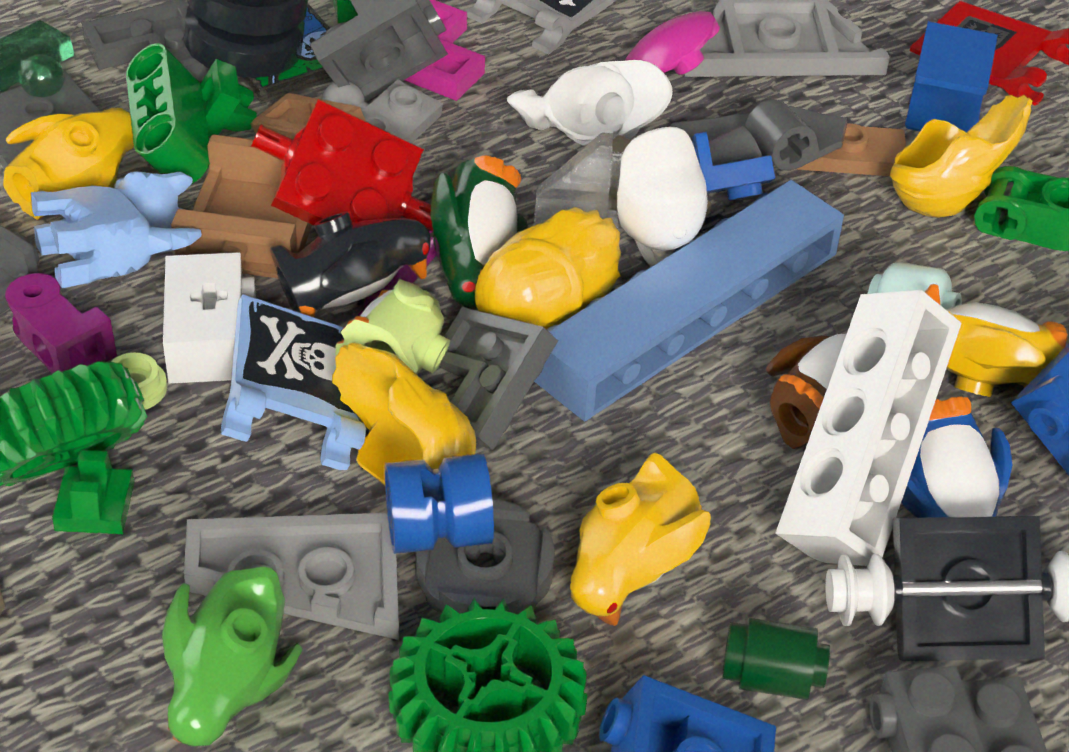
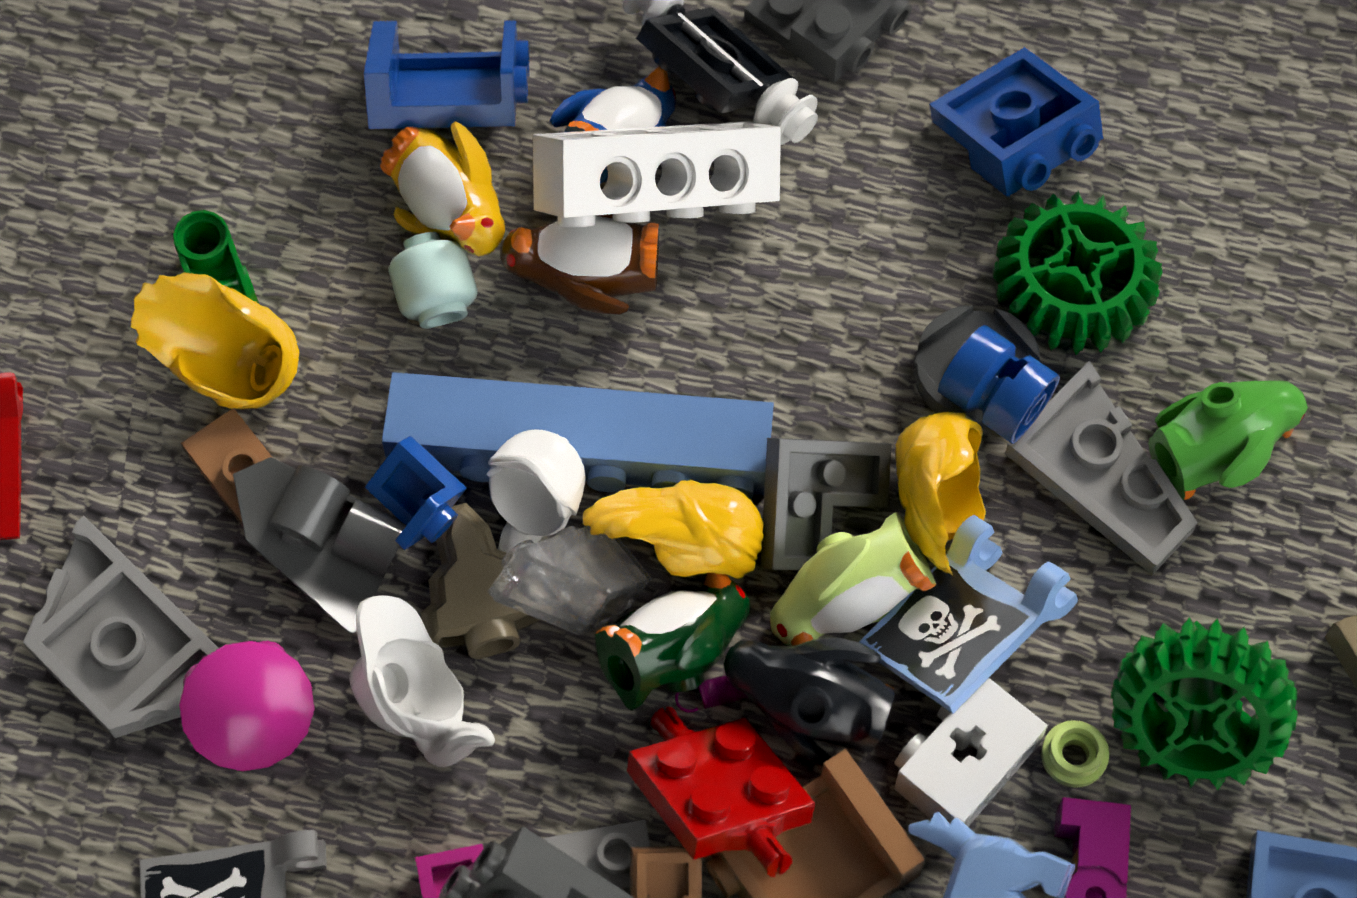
camera: 130 degrees left, 20 degrees up
(636, 537) = (873, 279): yellow animal -> none
(775, 658) = (878, 139): dark green brick -> none
(951, 76) = (83, 436): blue piece -> none

